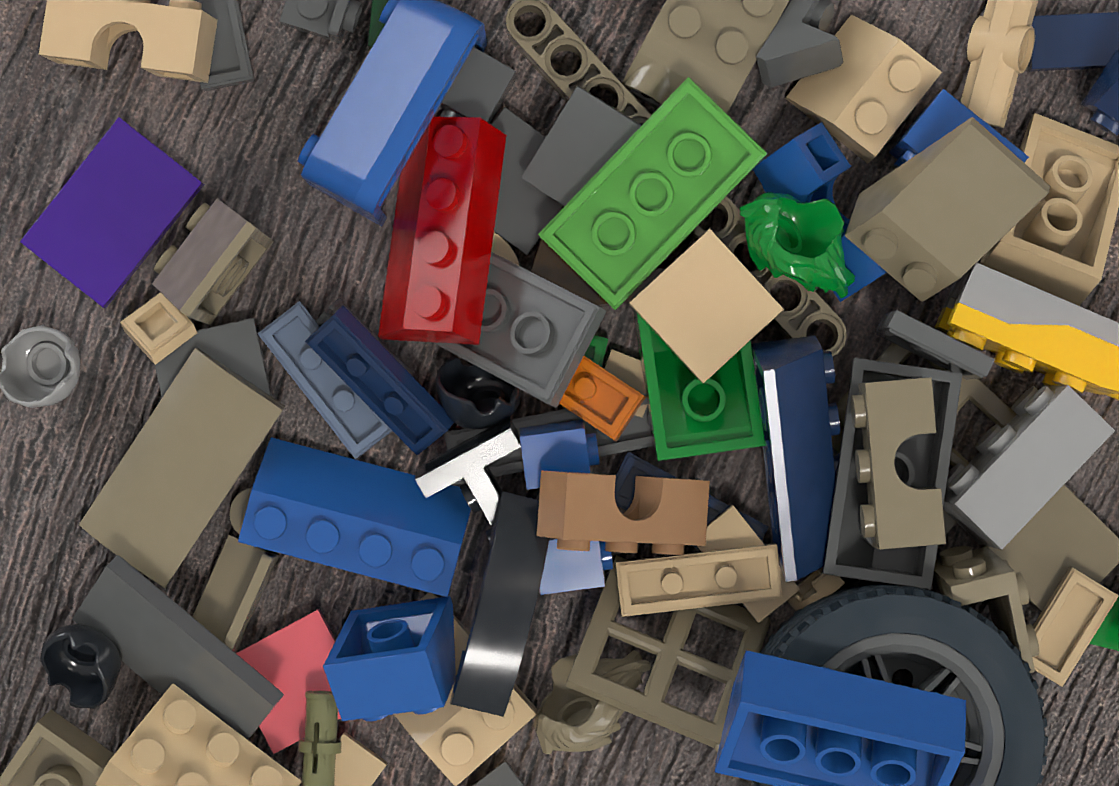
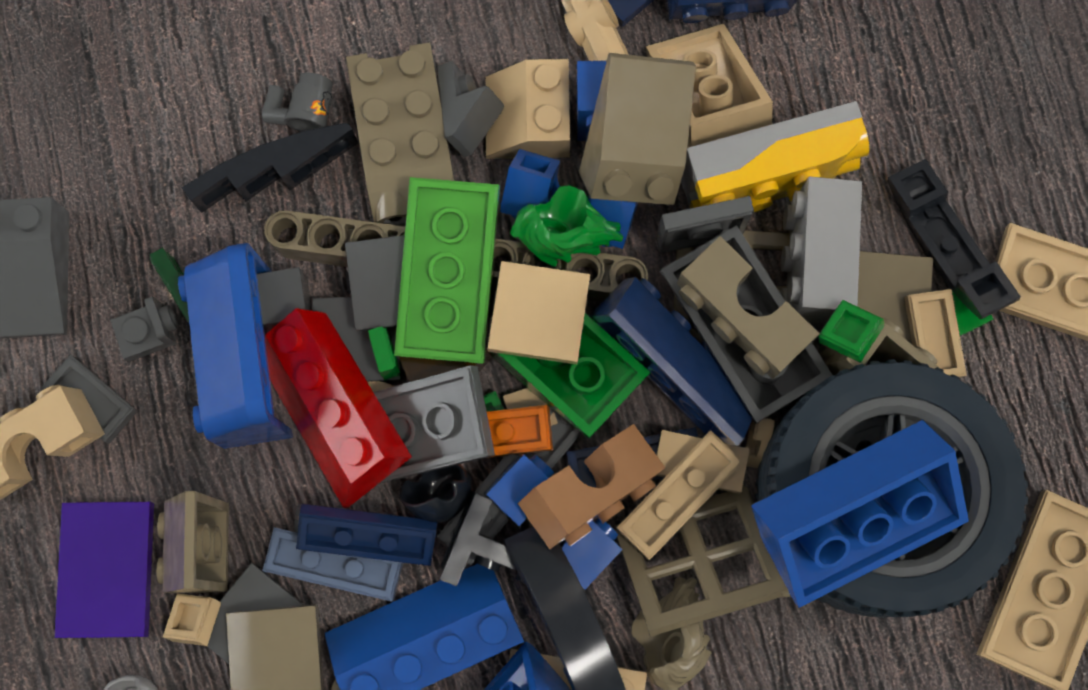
camera: 30 degrees left, 10 degrees down
(531, 221) = (384, 352): none -> green tile
(978, 564) = (851, 331): none -> green tile

